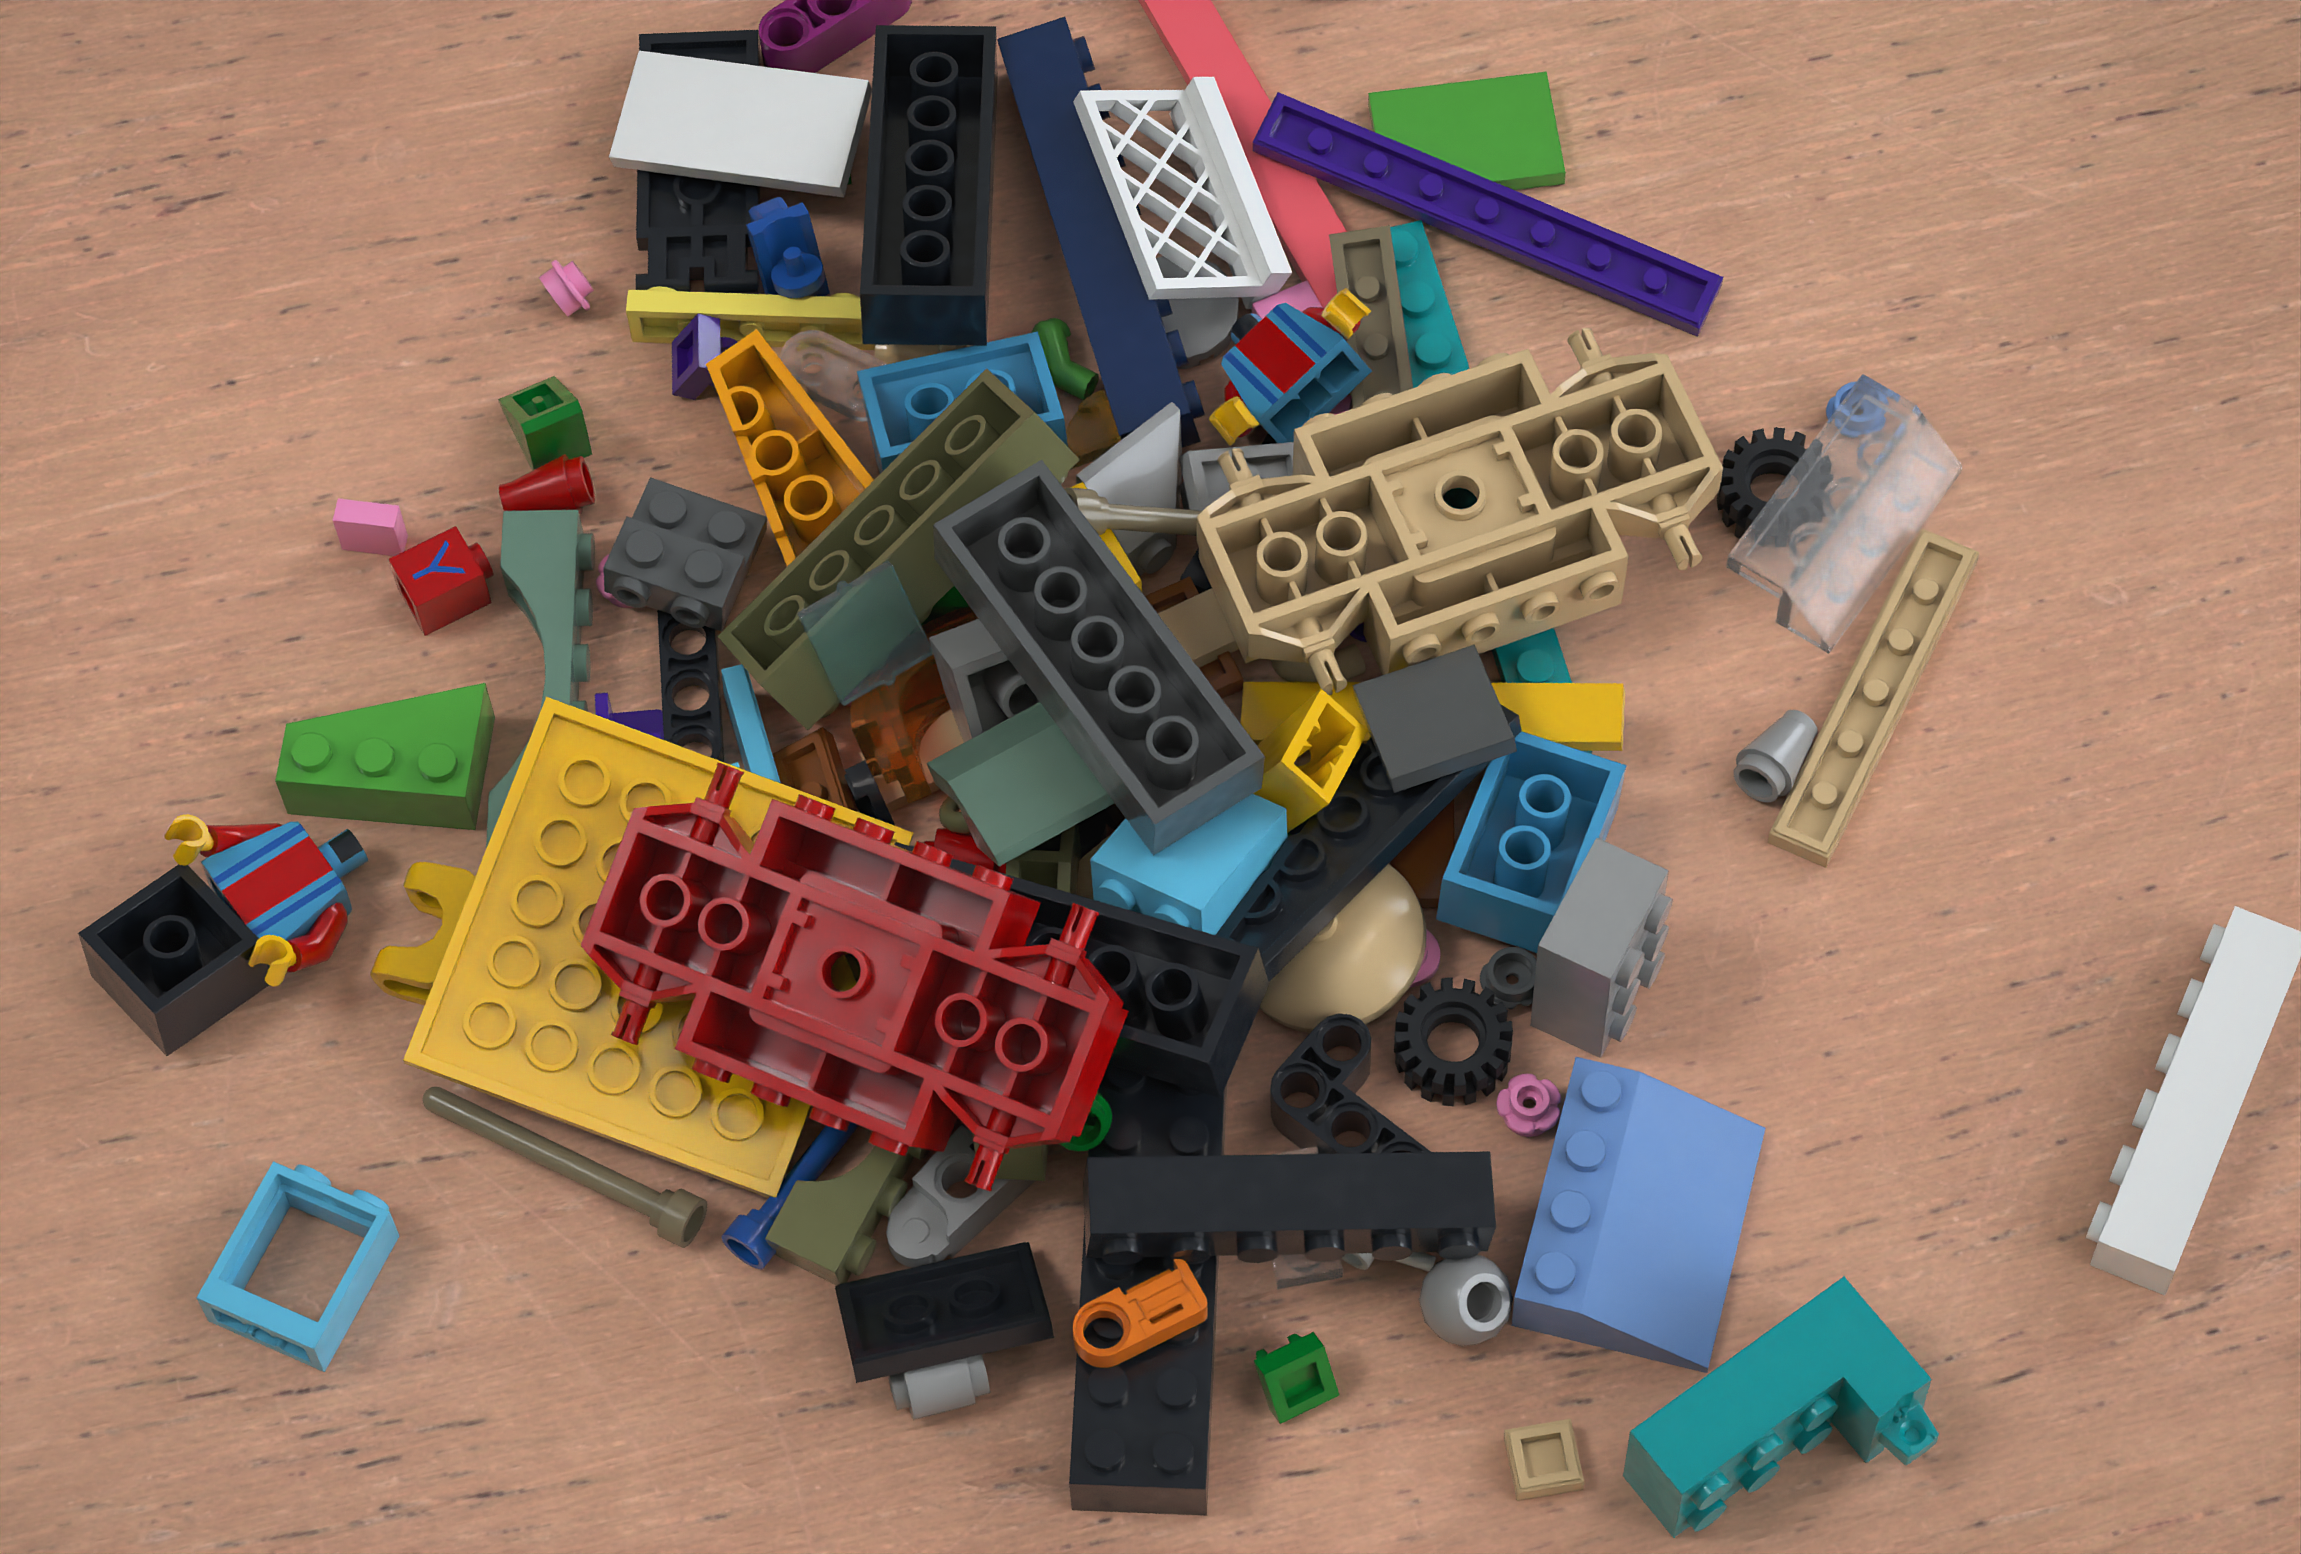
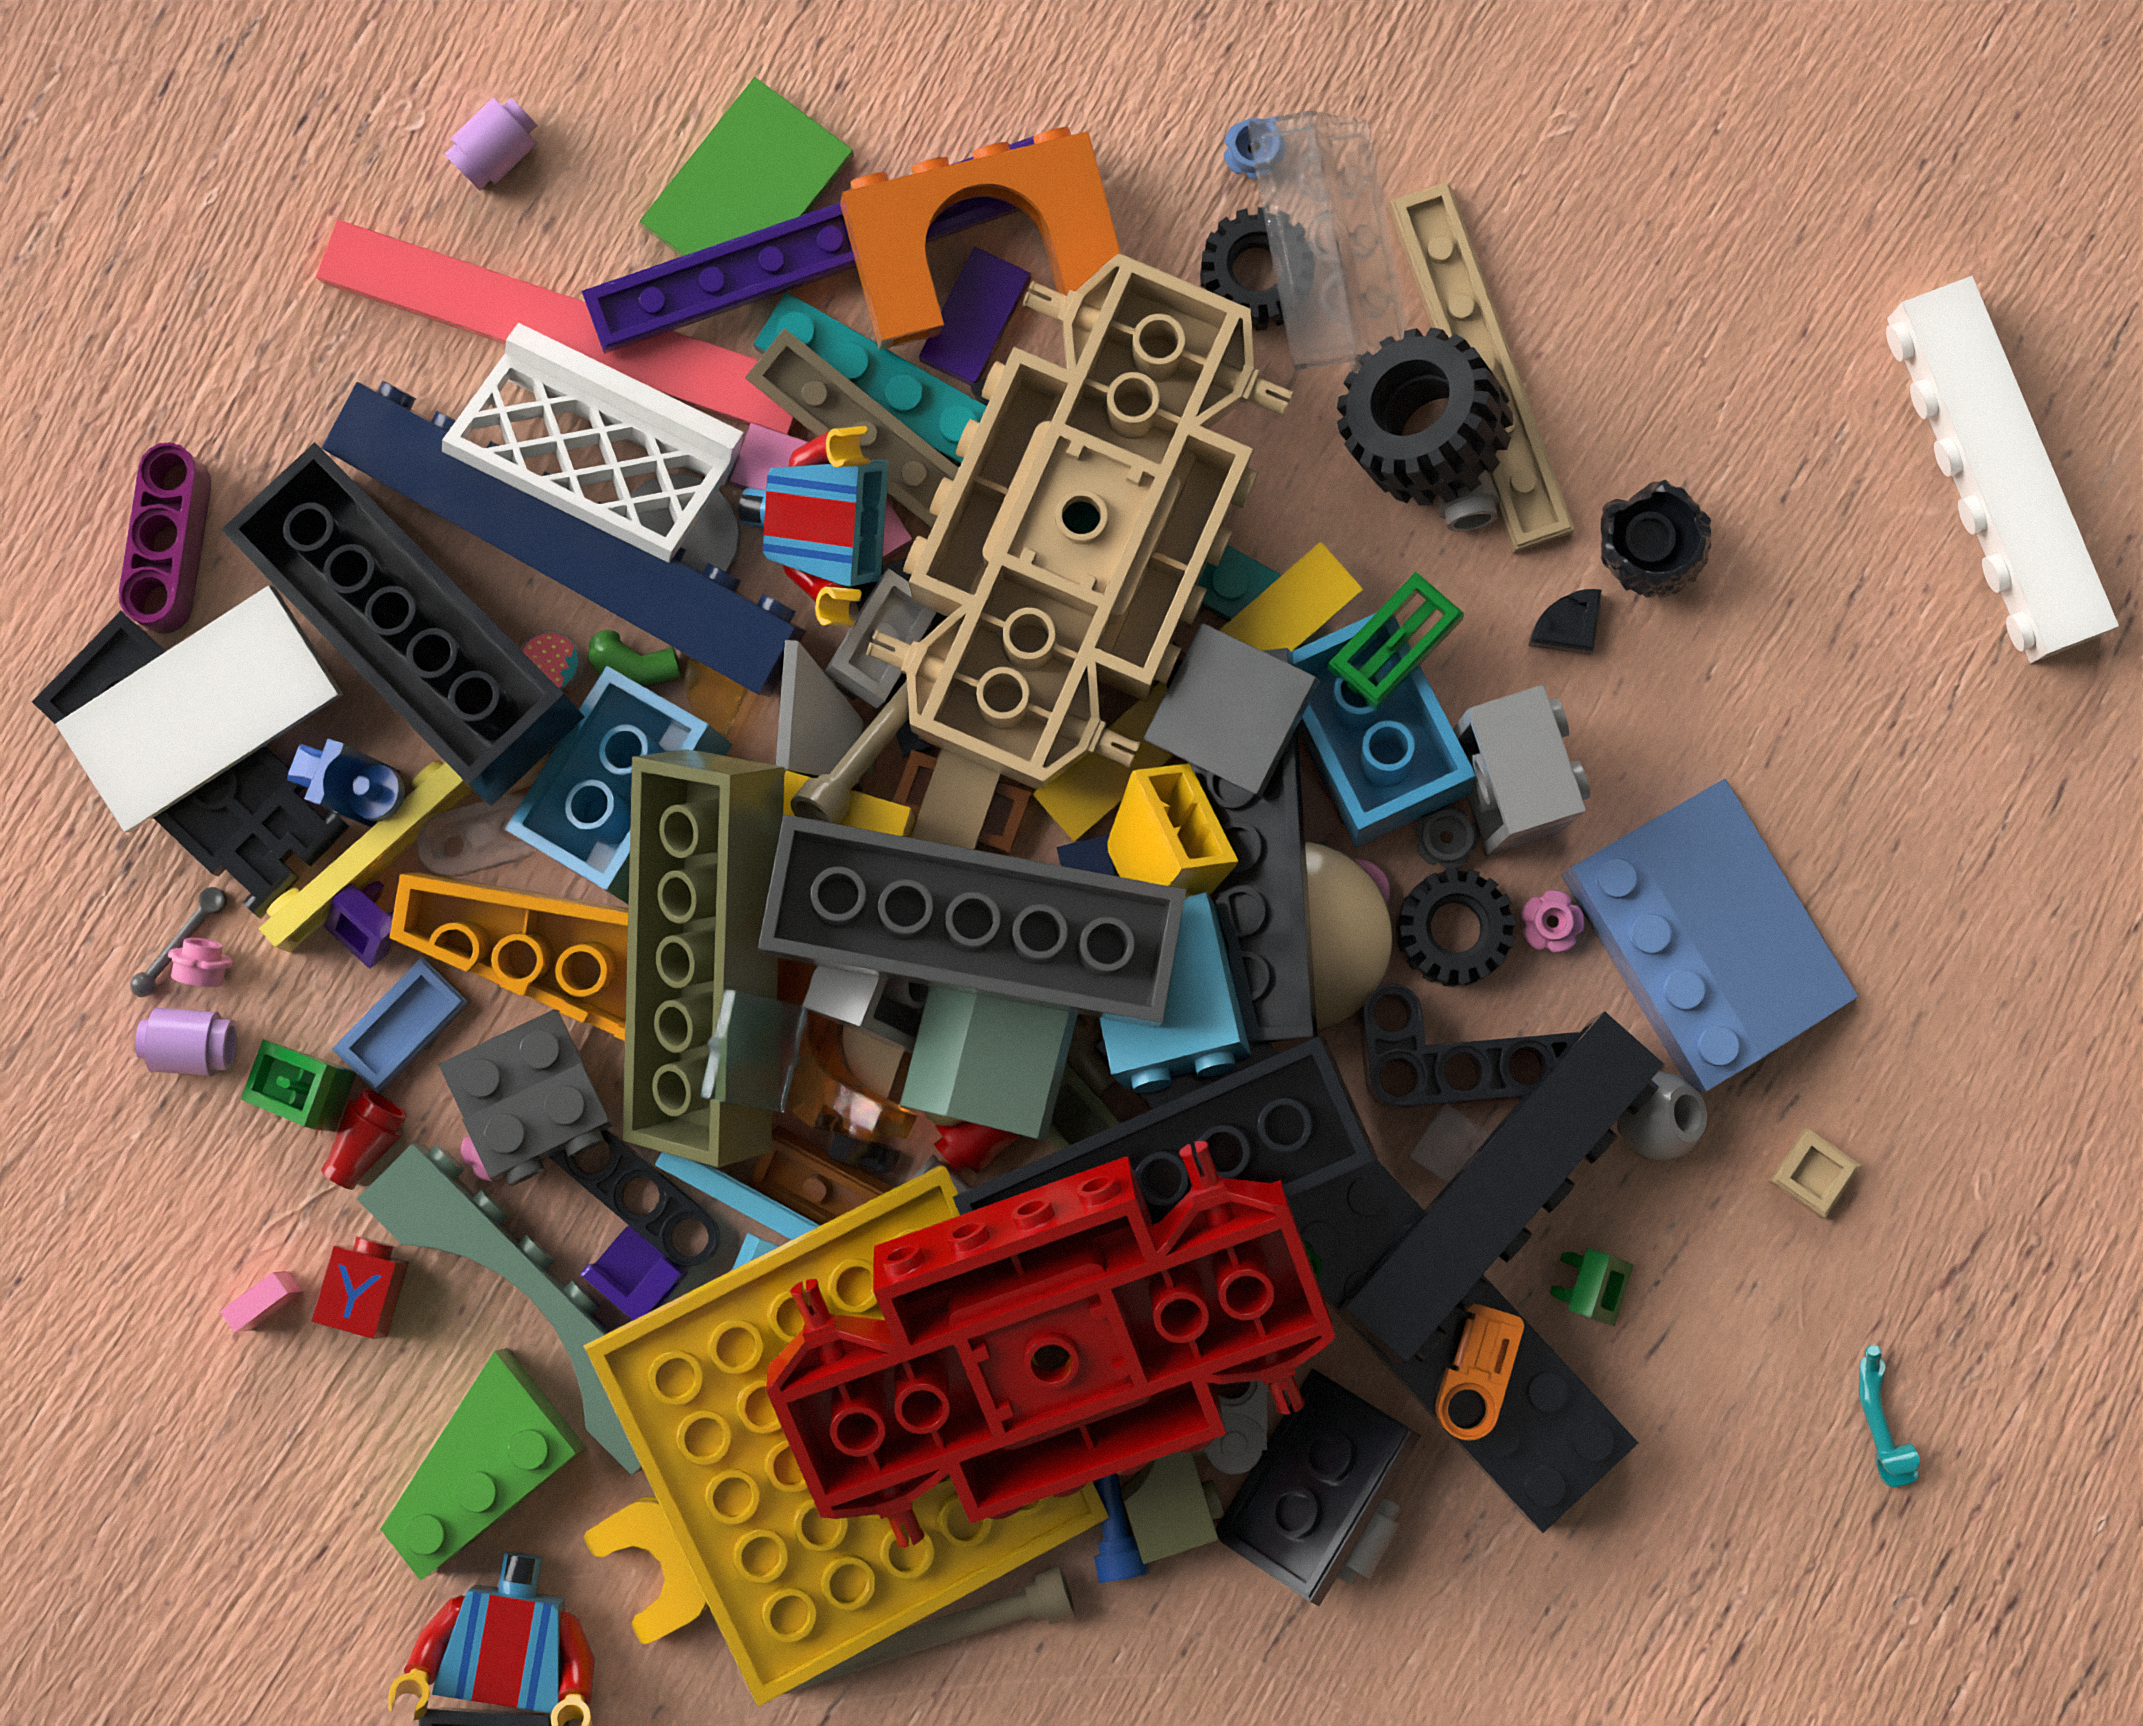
camera: 45 degrees left, 20 degrees up
(504, 326) = (186, 1042): none -> lavender brick
(617, 263) = (211, 901): none -> dark grey hinge
(653, 448) = (401, 1025): none -> medium blue tile
(1009, 311) = (556, 657): none -> tile
(1545, 339) = (975, 316): none -> dark purple tile
(1546, 225) = (889, 219): none -> orange arch
(1604, 794) = (1360, 680): none -> green tile
(1758, 921) = (1569, 623): none -> black tile
(1779, 1395) = (1948, 988): teal hinge -> none
(1788, 671) = (1400, 382): none -> black tyre
(1877, 913) = (1655, 540): none -> black hair

